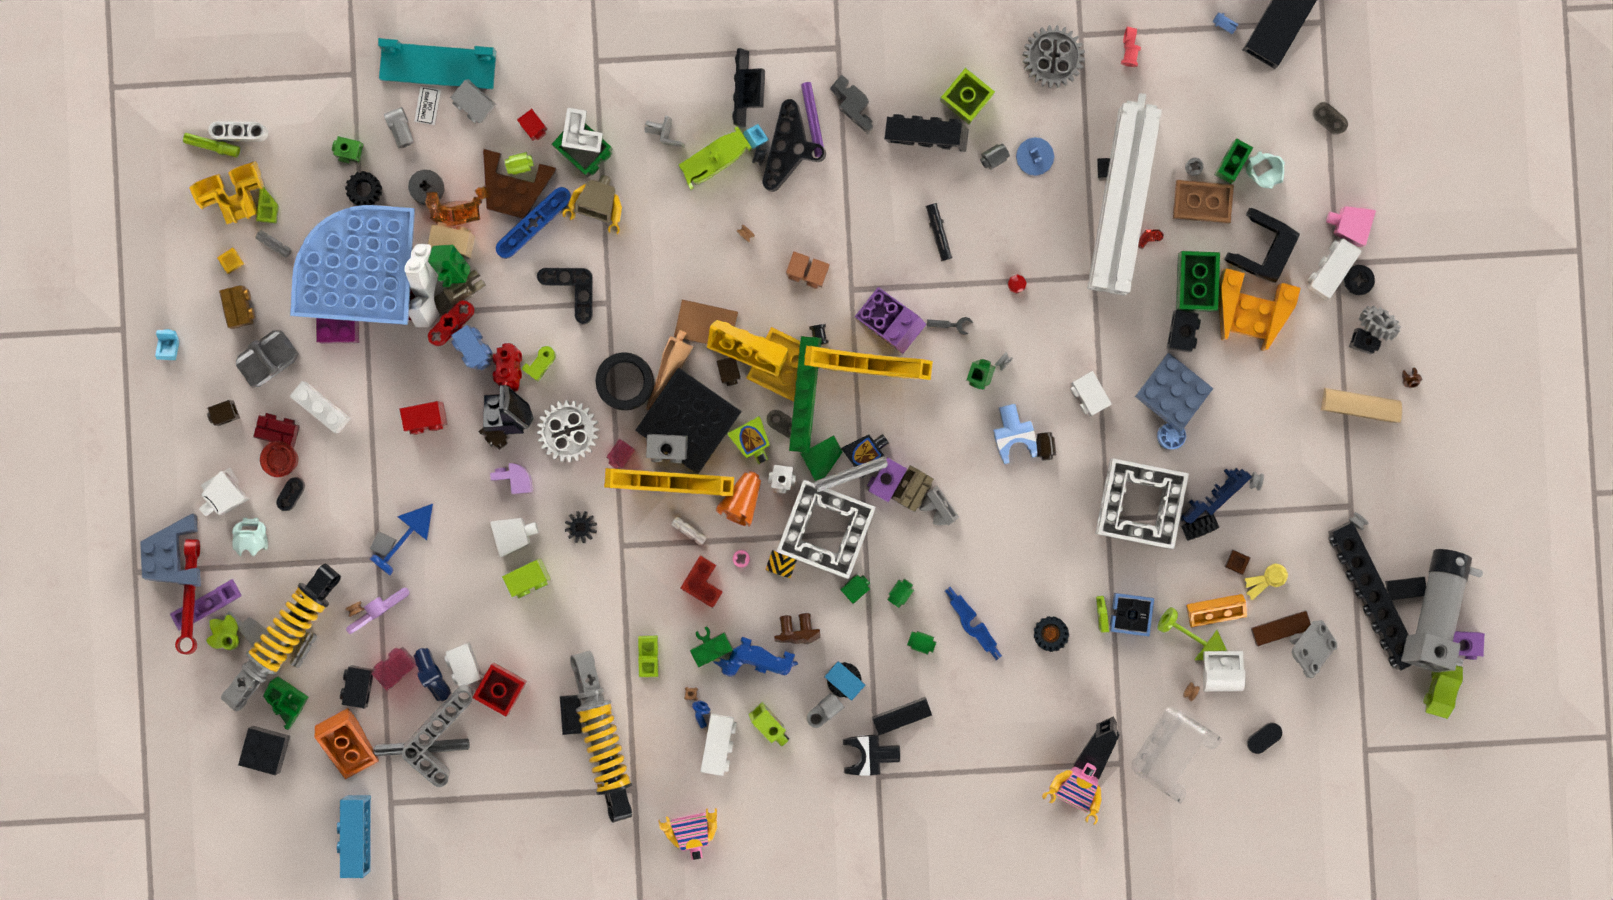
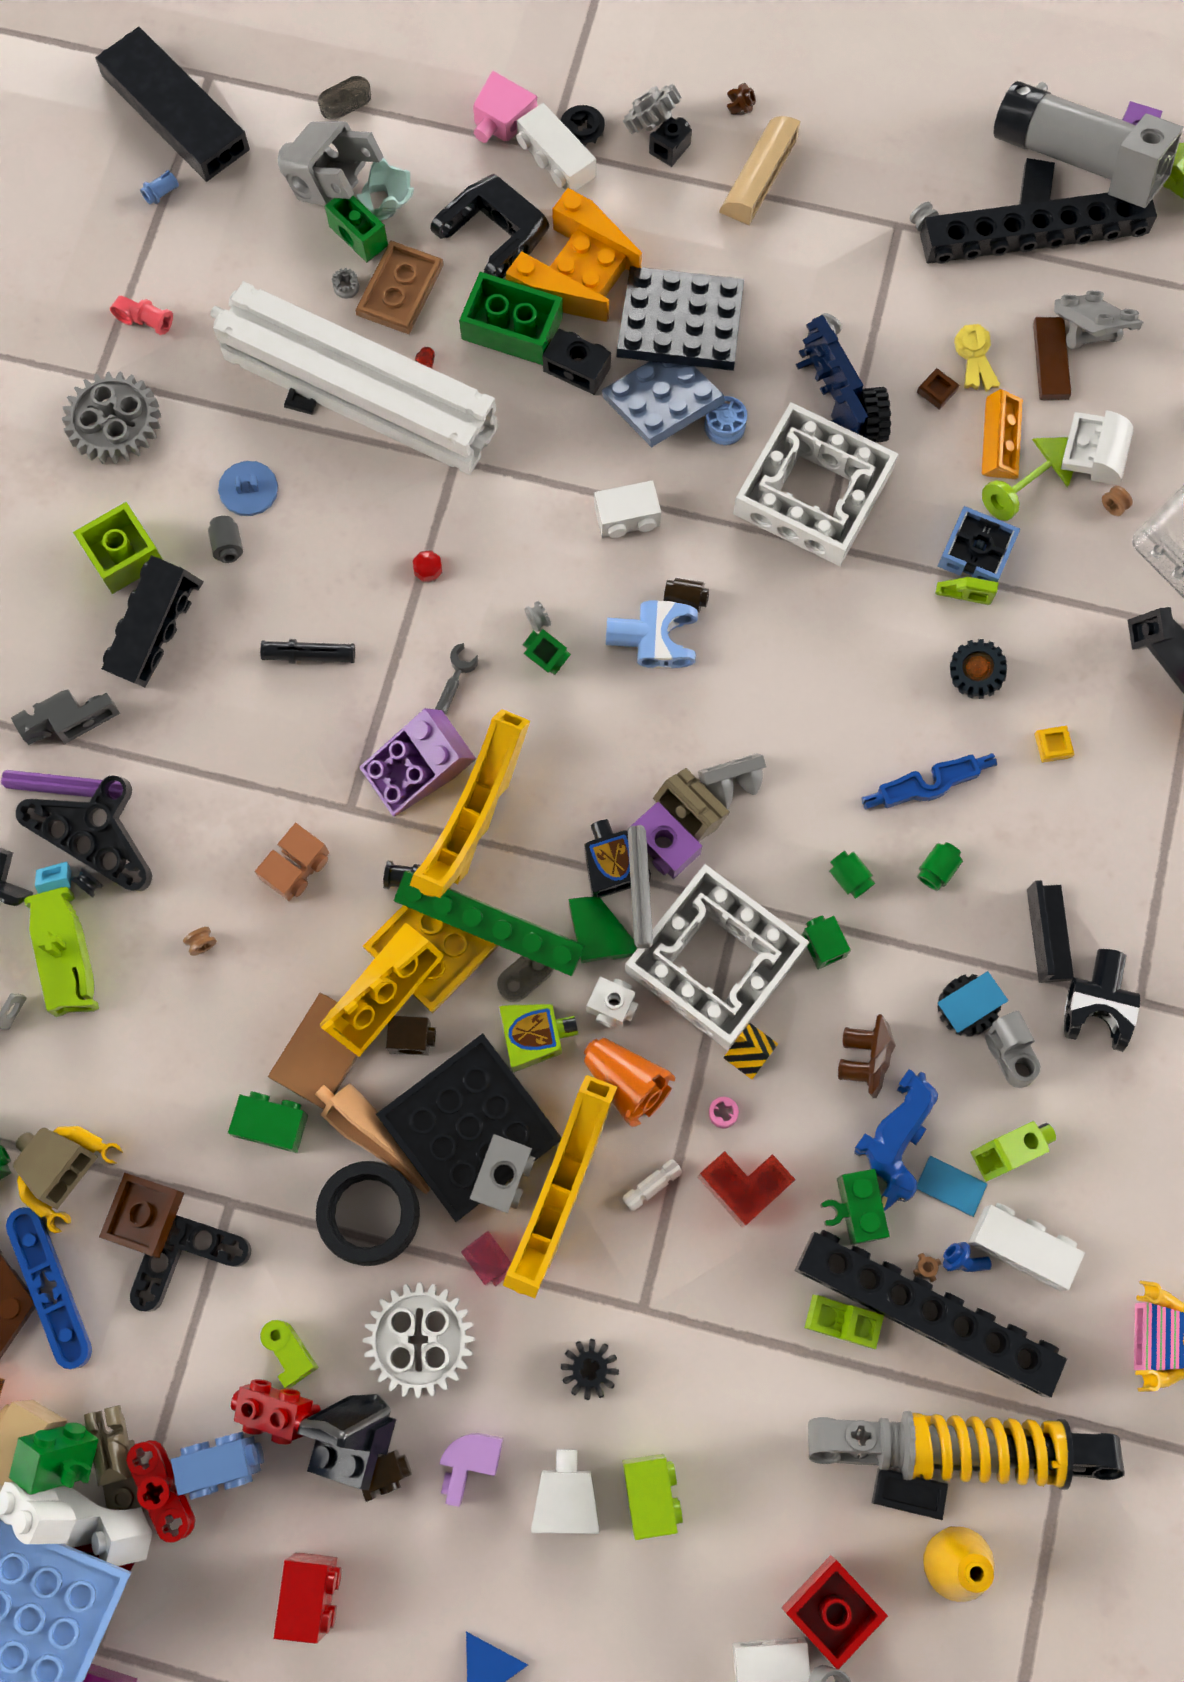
camera: 75 degrees left, 15 degrees down
(548, 744) = (959, 1564): none -> yellow cone
(586, 258) = (141, 1215): none -> reddish brown tile
(650, 767) = (1045, 1365): none -> black brick
(656, 309) = (268, 1122): none -> green brick
(740, 696) = (951, 1186): none -> dark azure sticker
(1020, 691) = (1054, 744): none -> yellow tile
(1232, 387) = (680, 318): none -> plate
(1269, 126) = (321, 173): none -> light grey piece

